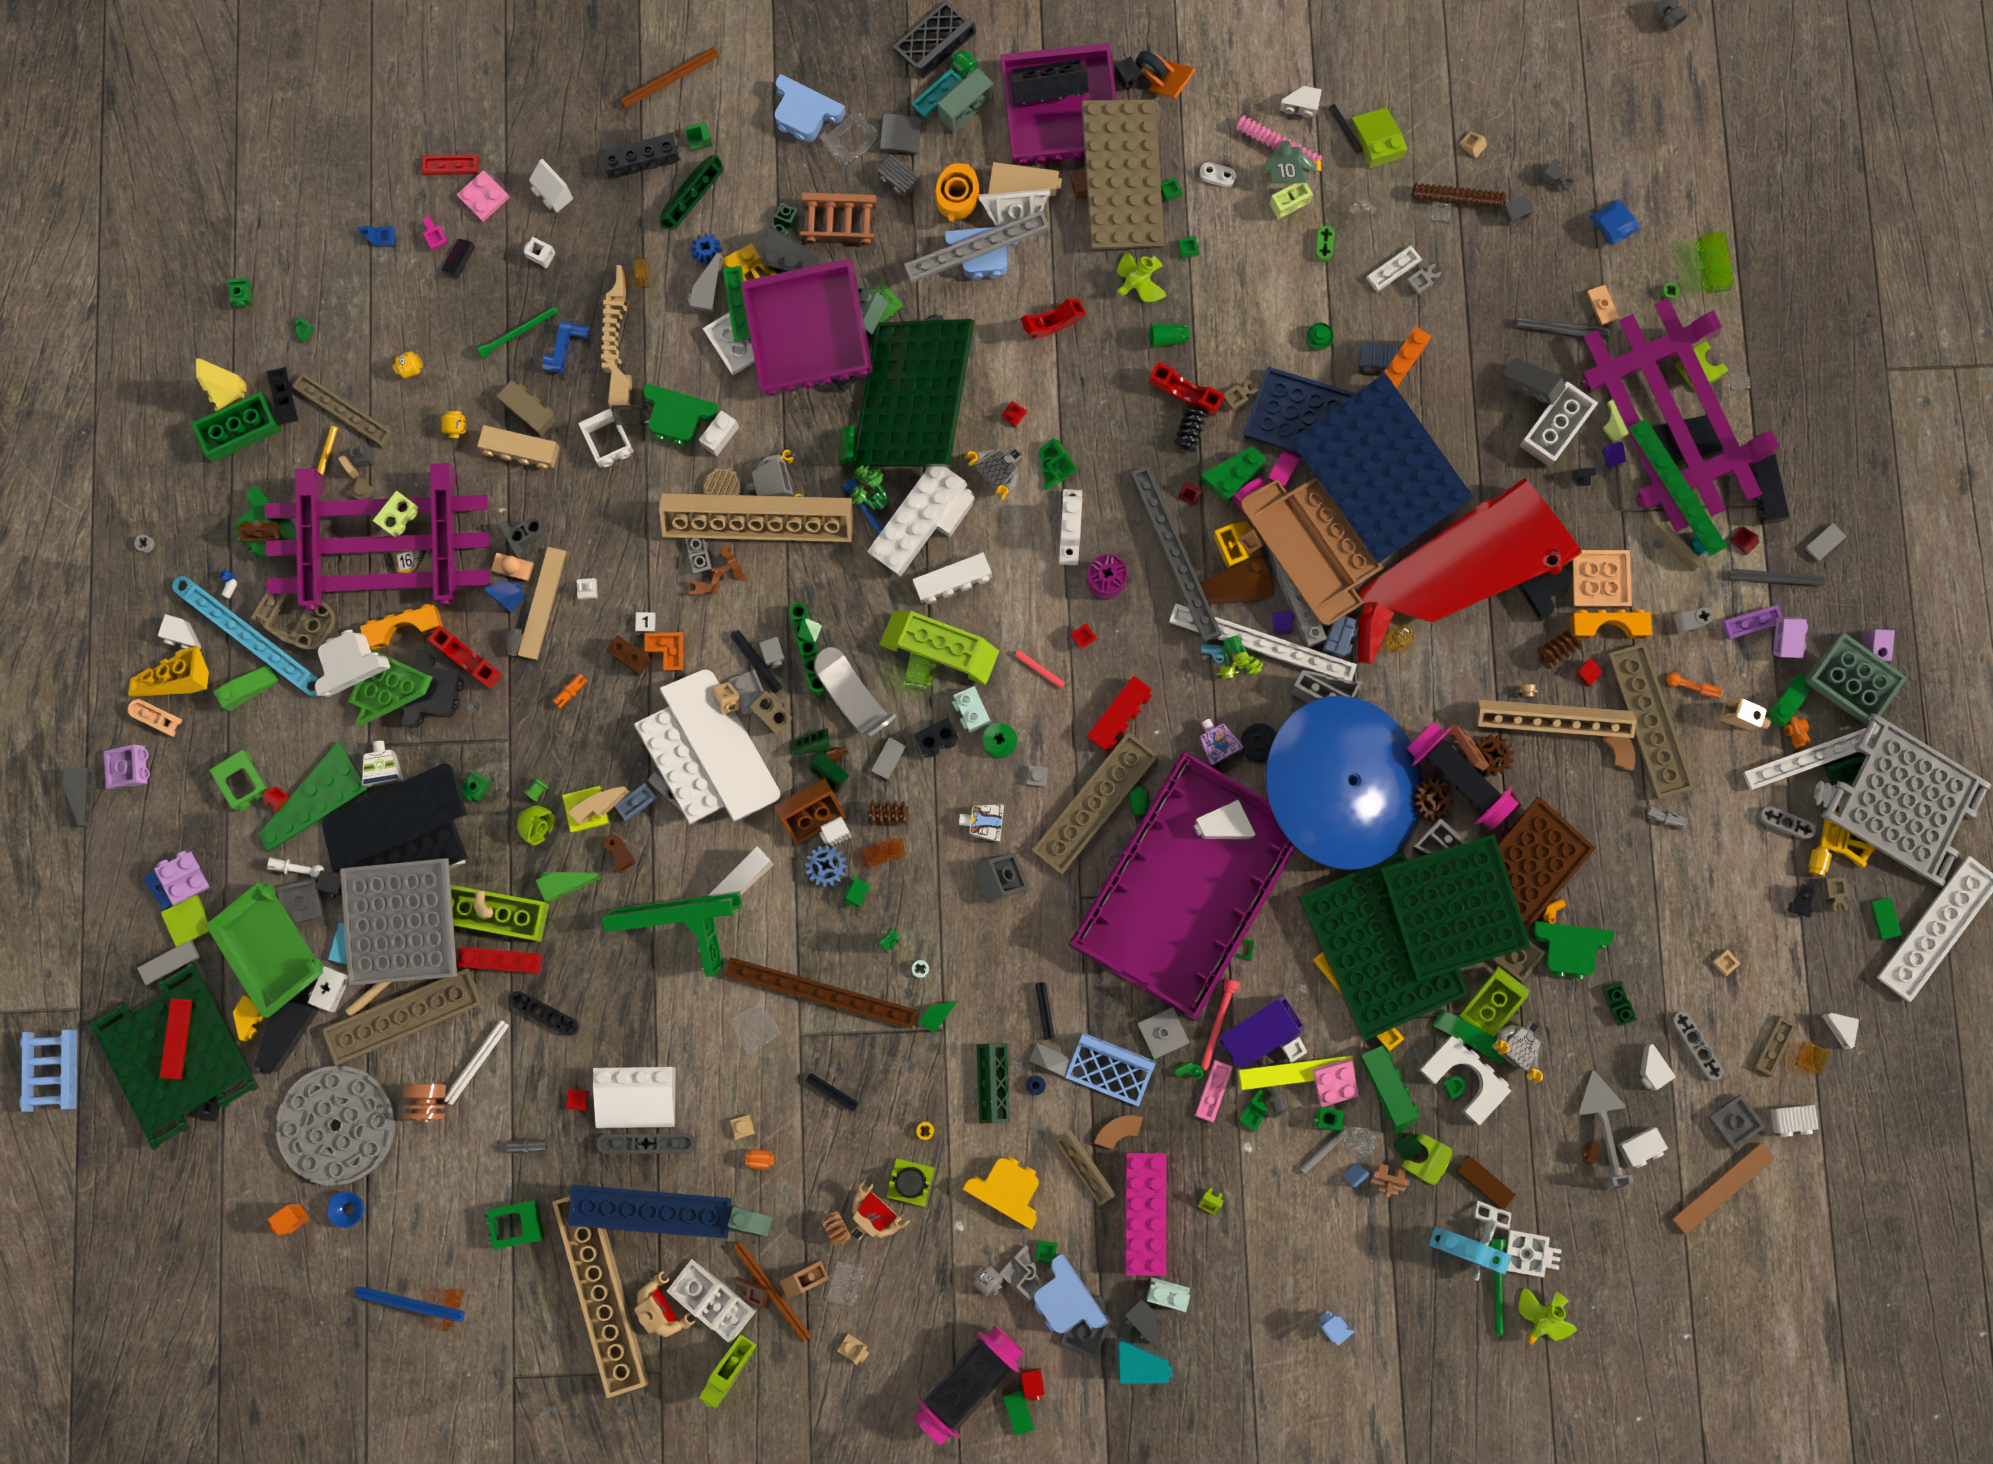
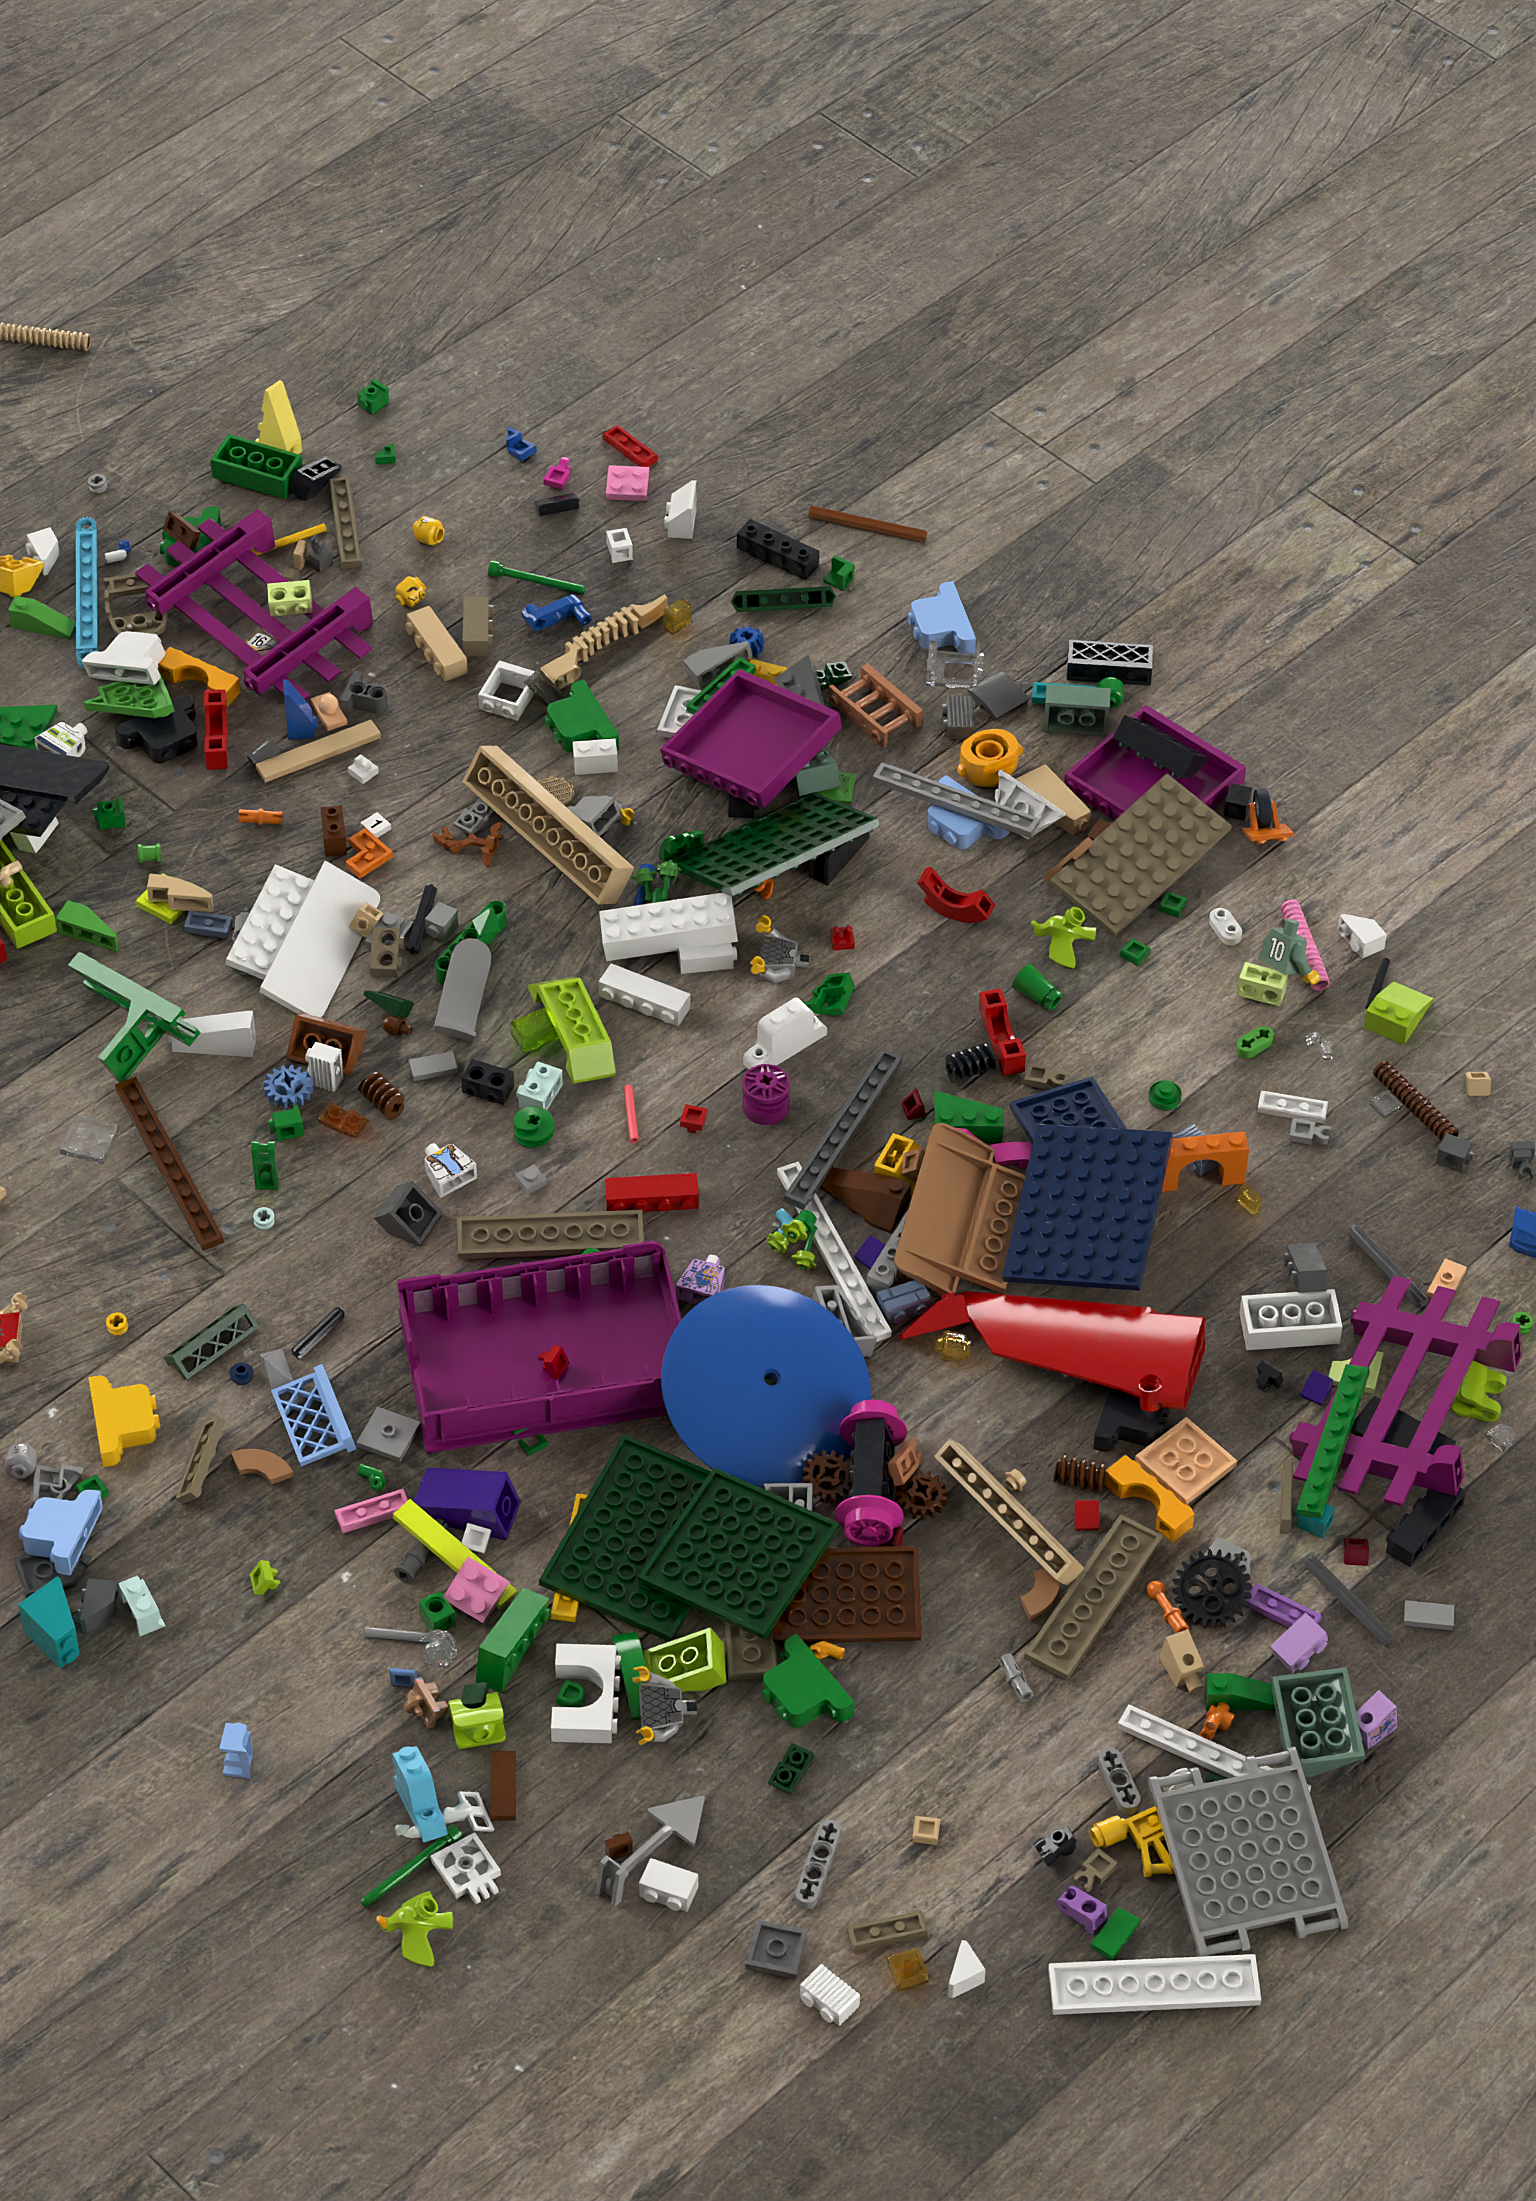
camera: 45 degrees right, 30 degrees down
(534, 823) = (117, 870): lime cylinder -> none
(620, 852) = (152, 945): reddish brown leg -> none
(826, 769) = (376, 1030): dark green slope -> none
(832, 1092) = (85, 1233): black axle -> none
(910, 1182) = (56, 1344): piece -> none
(936, 1015) = (233, 1255): green slope -> none
(1087, 214) = (1077, 852): none -> medium nougat tile
(1145, 1214) = (201, 1533): dark pink brick -> none
(1206, 889) = (554, 1361): none -> red tile
(1225, 823) = (632, 1333): white slope -> none
(1229, 988) = (482, 1452): coral piece -> none
(1254, 1112) = (384, 1556): green slope -> none
(1444, 361) = (1249, 1198): none -> clear yellow tile
(1654, 1069) = (755, 1841): white slope -> none
(1708, 668) = (1196, 1604): none -> black gear
(1722, 1188) = (698, 1988): medium nougat tile -> none
(1857, 924) = (1083, 1909): none -> medium lavender leg

